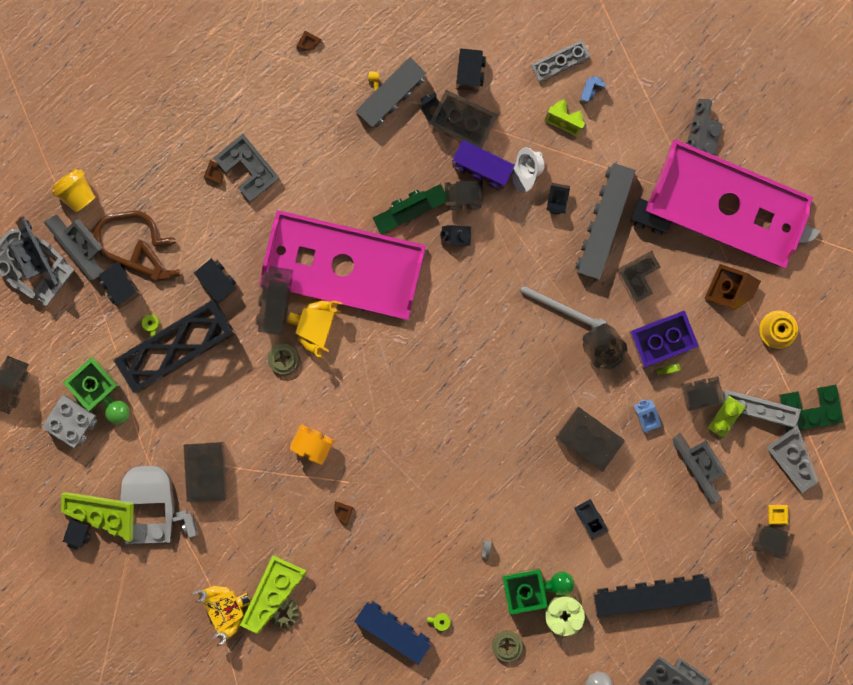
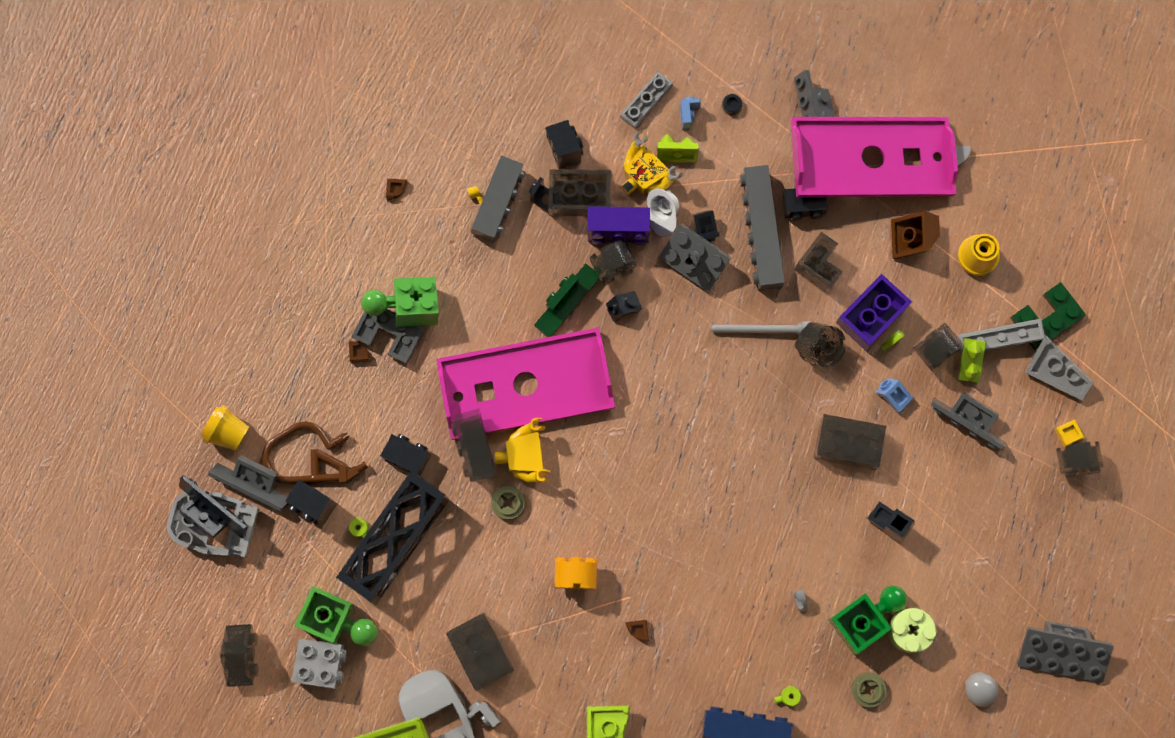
camera: 25 degrees left, 10 degrees down
(274, 143) = (413, 302): none -> bright green brick
(529, 125) = (645, 170): none -> yellow torso
(535, 222) = (694, 257): none -> dark grey plate
(633, 99) = (732, 104): none -> black tile
(652, 596) = (989, 570): black brick -> none

